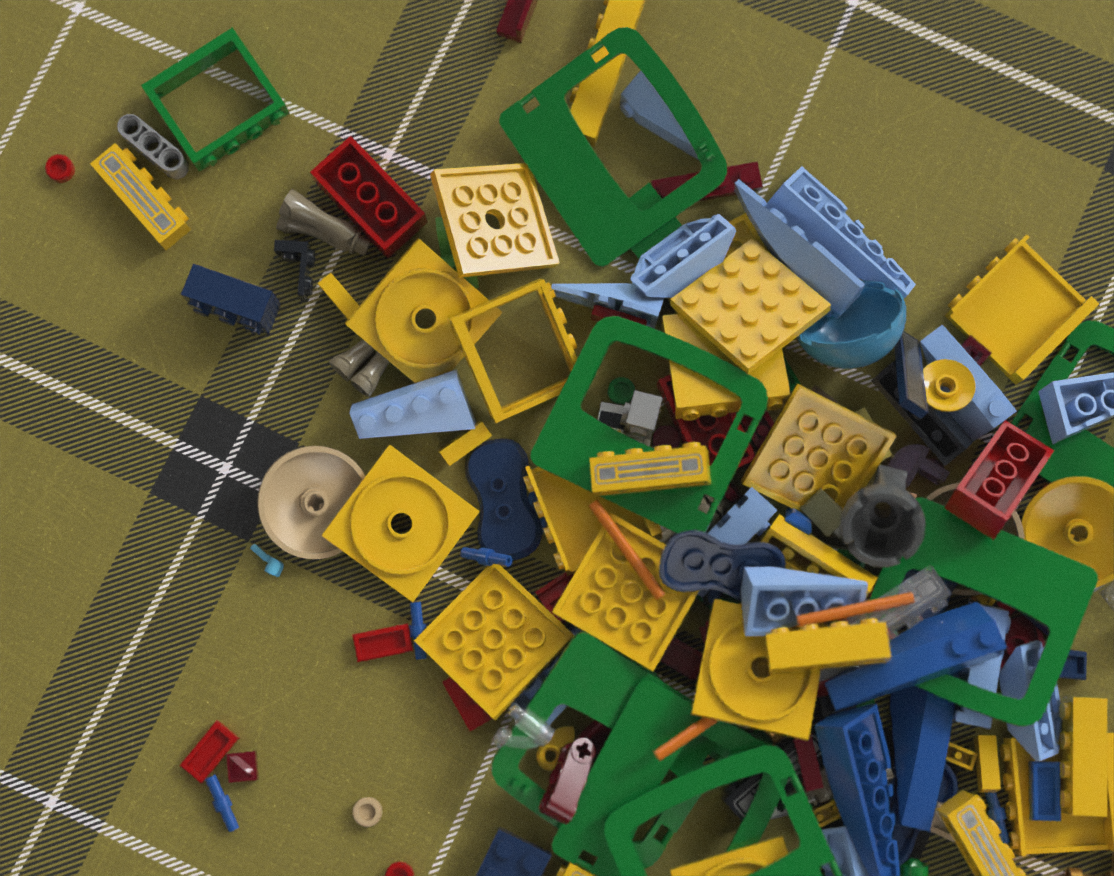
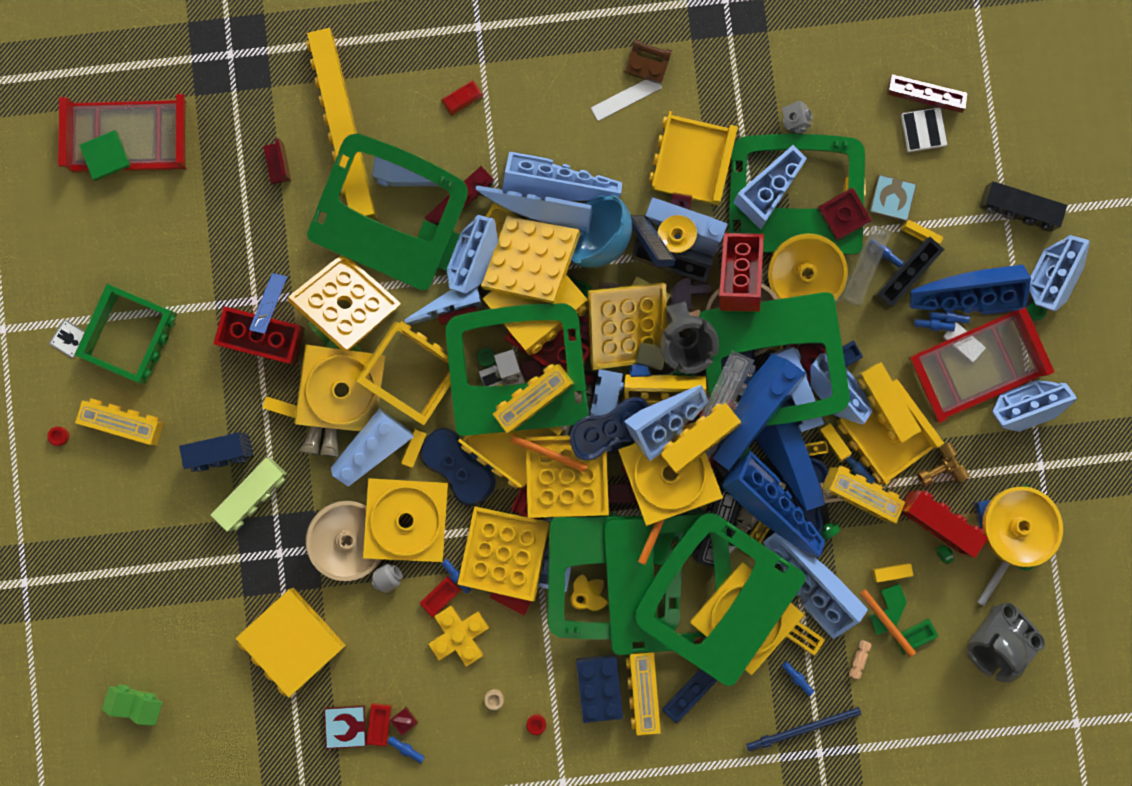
camera: 30 degrees left, 5 degrees up
(144, 63) = (67, 338): none -> sticker
(144, 138) = (97, 387): light grey beam -> none
(168, 582) = (290, 642): none -> yellow panel
(168, 728) = (345, 726): none -> tile
(235, 375) = (249, 495): none -> yellowish green brick
(273, 566) = (347, 593): medium azure hand -> none
(292, 251) = (234, 398): black bracket -> none
(304, 217) = (226, 373): dark tan piece -> none
(333, 579) = (386, 578): none -> light grey head
(375, 705) = (458, 635): none -> yellow plate
(404, 165) = (268, 303): none -> sticker
(486, 556) = (468, 507): blue bar -> none
(537, 730) = (557, 591): clear plant -> none
(567, 780) = (599, 609): piece -> none
(597, 734) = (598, 572): dark red tile -> none
(784, 70) = (462, 97): none -> red tile
(807, 764) = (732, 510): dark red piece -> none
(855, 609) = (703, 405): orange bar -> none
(982, 189) = (624, 98): none -> white sticker
(1028, 169) = (645, 67): none -> reddish brown plate
(1044, 791) = (877, 437): blue tile -> none

